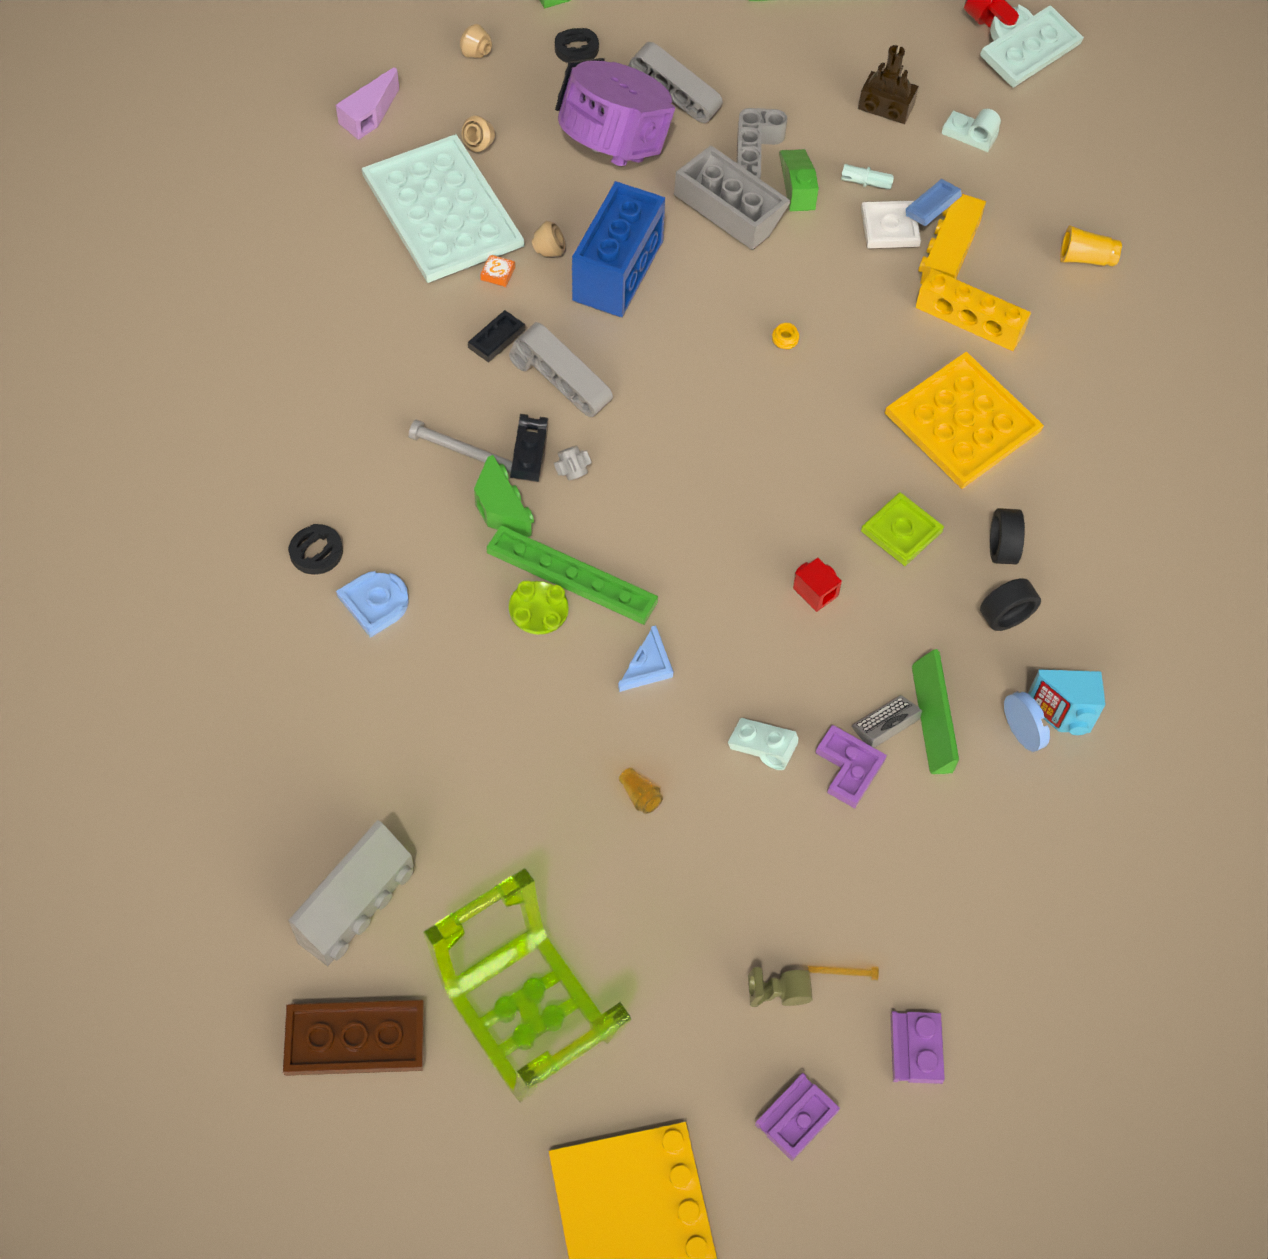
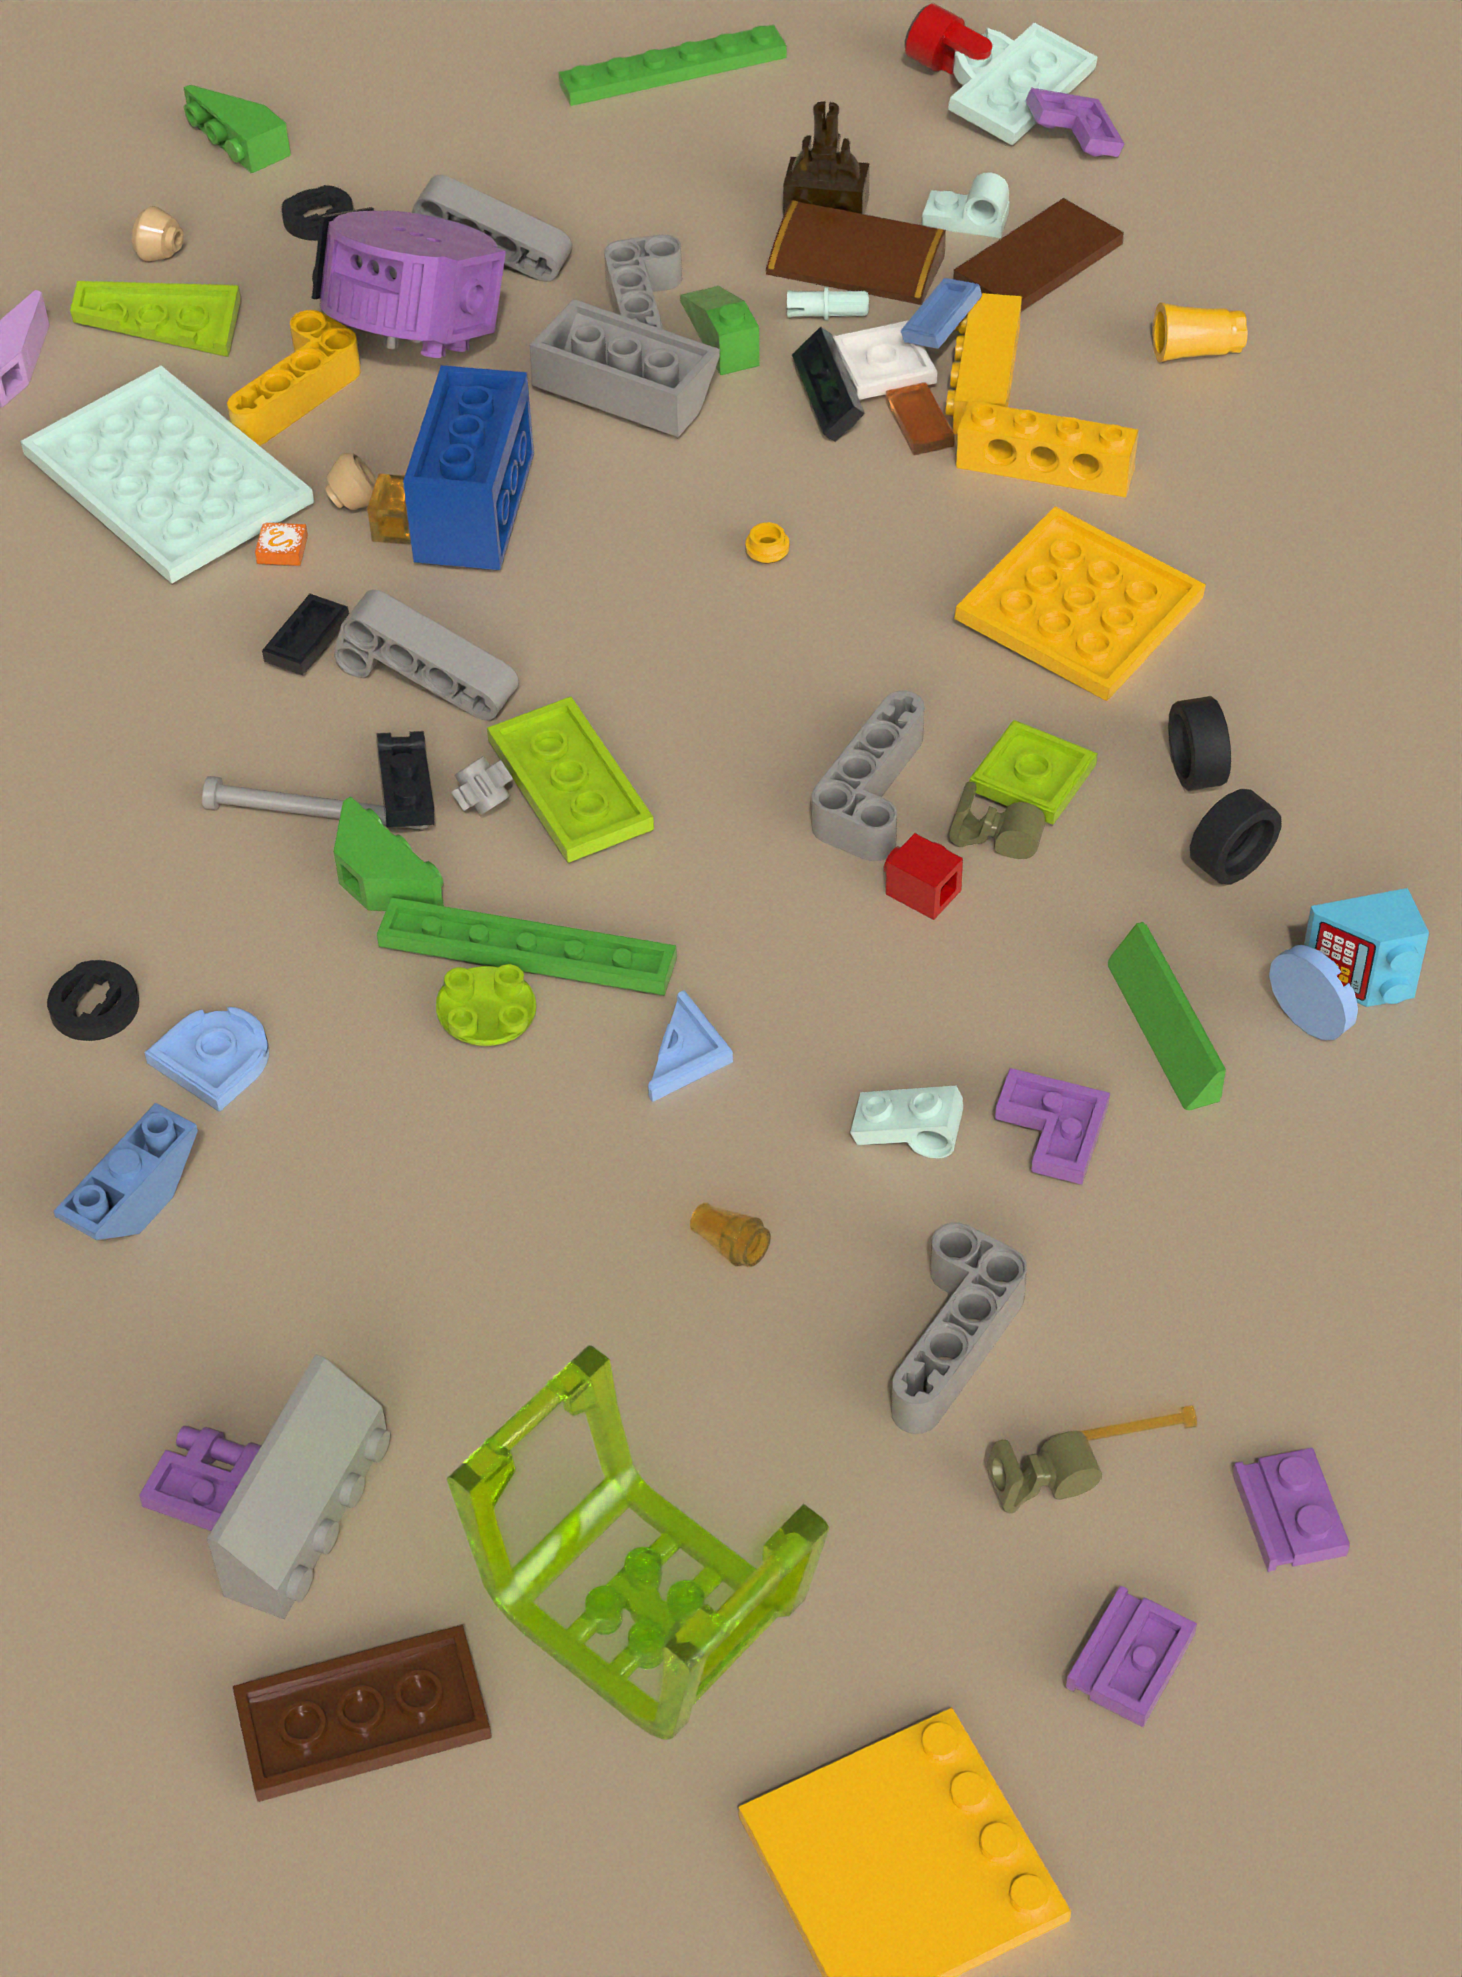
camera: 10 degrees left, 10 degrees down
(294, 874) = (190, 1486): none -> medium lavender plate
(306, 674) = (132, 1179): none -> medium blue slope
(466, 94) = (170, 313): none -> lime wing
(477, 133) = (195, 358): tan cone -> none
(547, 157) = (319, 367): none -> yellow beam
(563, 263) = (388, 511): none -> clear yellow brick
(626, 469) = (570, 779): none -> lime plate
(749, 886) = (974, 1295): none -> light grey beam
(800, 499) = (849, 799): none -> light grey beam
(851, 234) = (828, 384): none -> black plate
(880, 566) = (1015, 830): none -> olive leg
(887, 721) = (1096, 1047): slope -> none
(895, 145) = (856, 252): none -> reddish brown slope
(902, 269) = (920, 418): none -> clear orange tile
(1007, 170) = (1041, 253): none -> reddish brown tile
(1061, 76) = (1079, 113): none -> medium lavender plate

